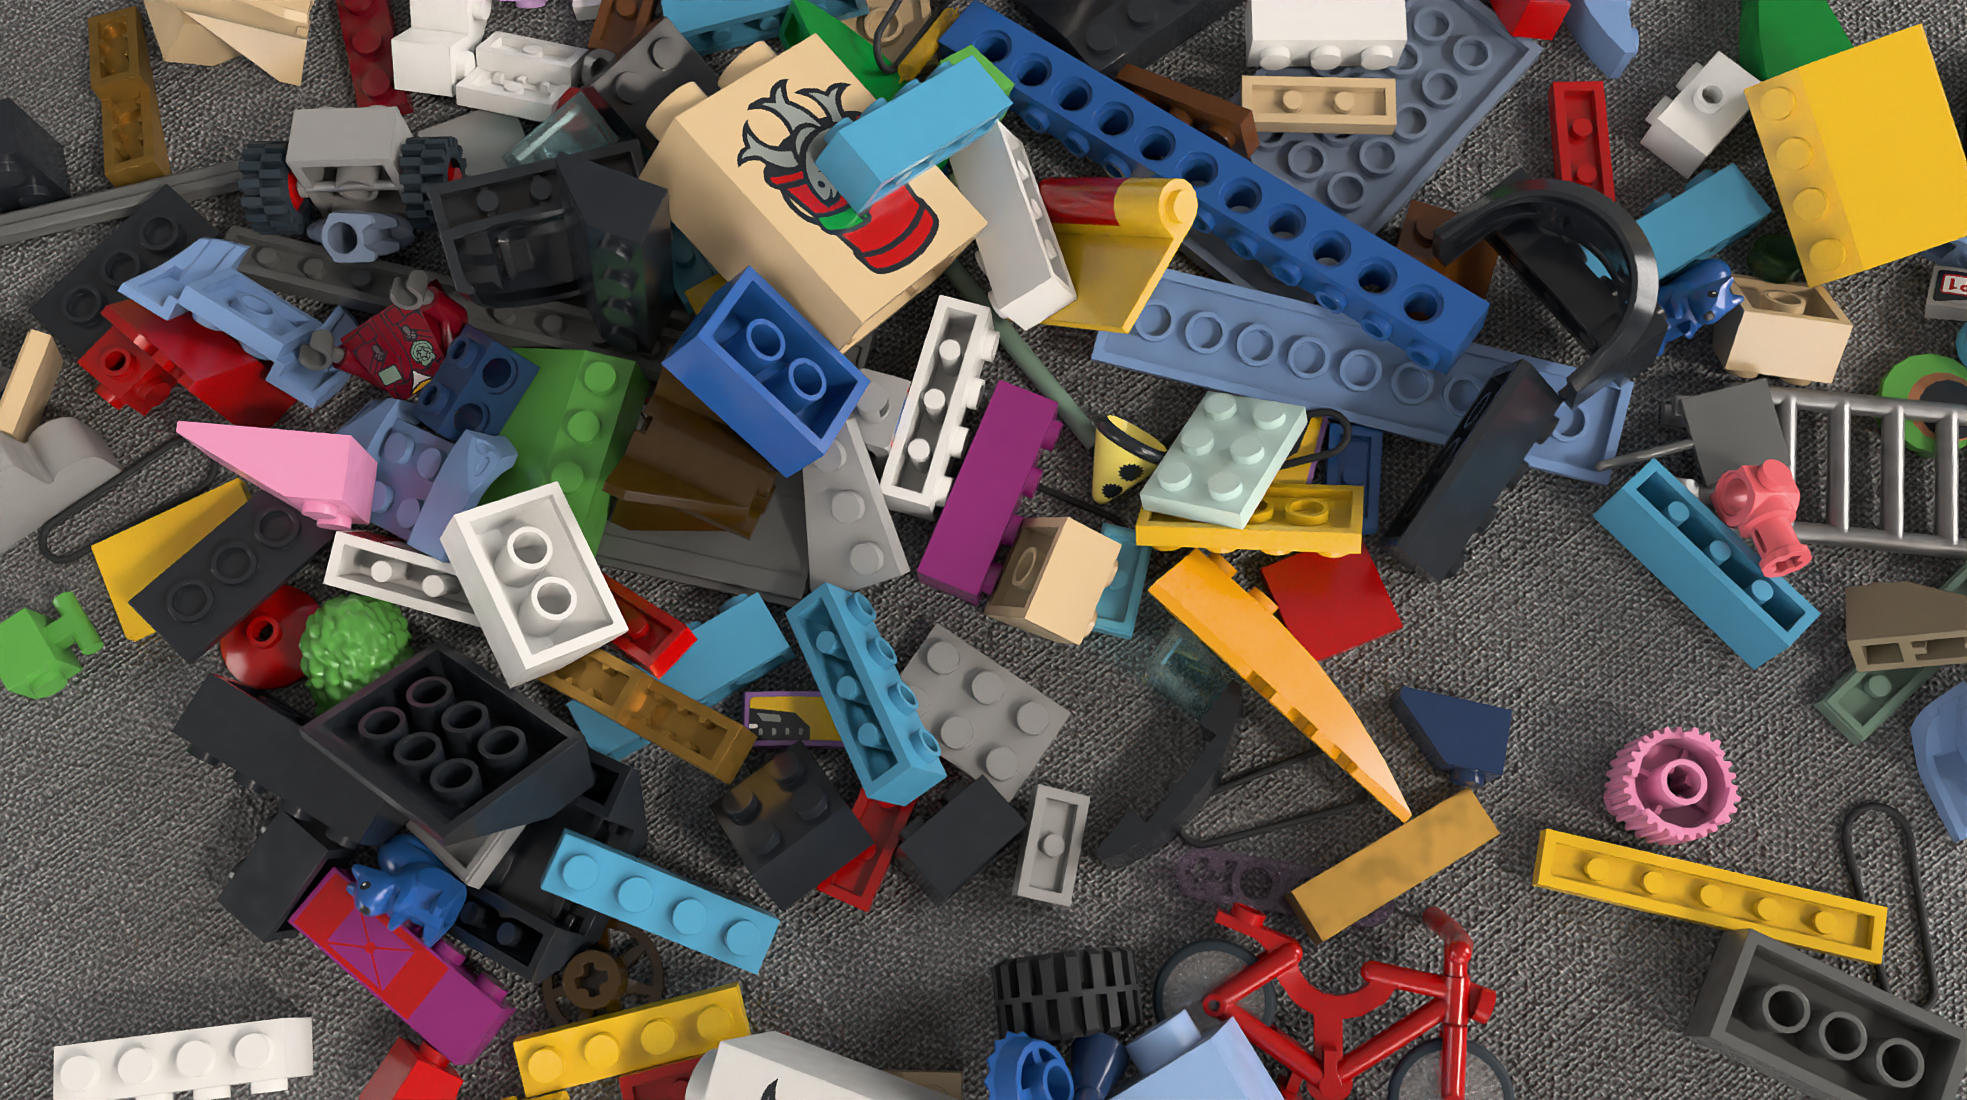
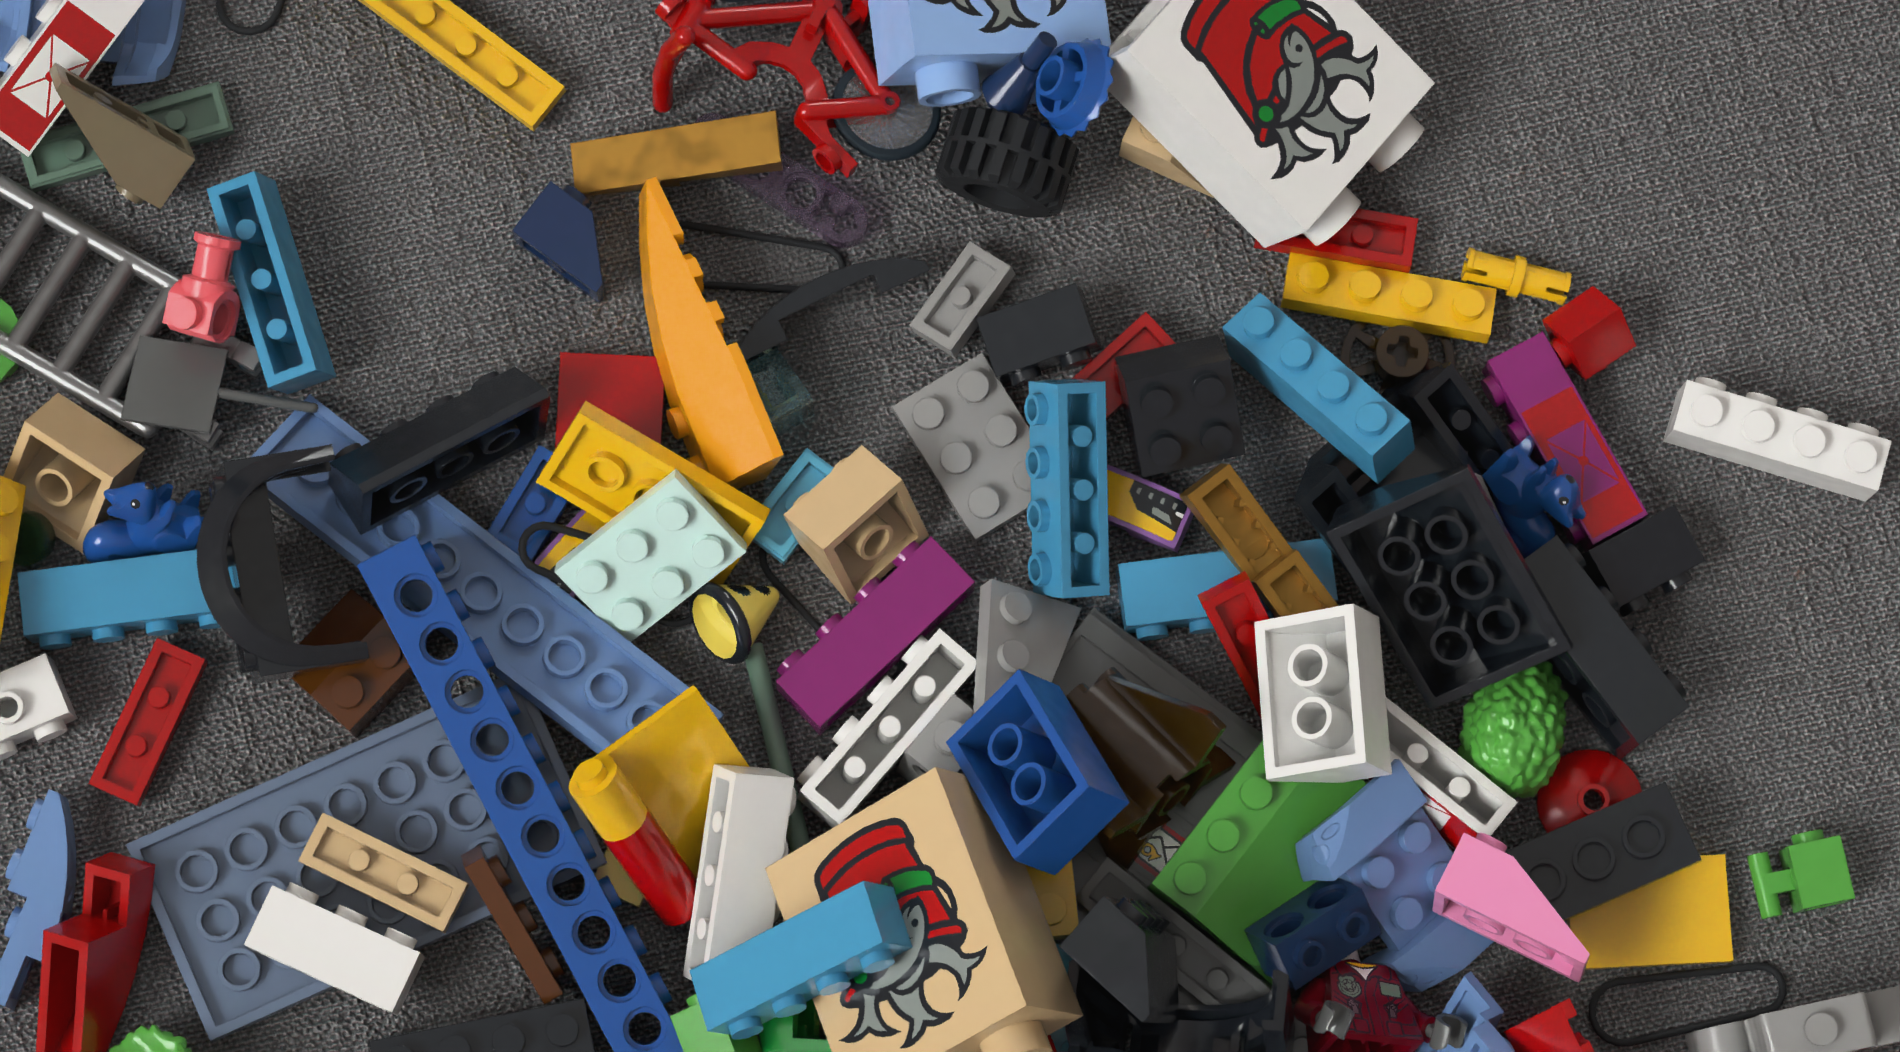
camera: 165 degrees left, 5 degrees up
(1698, 775) = (414, 140): bright pink brick -> none

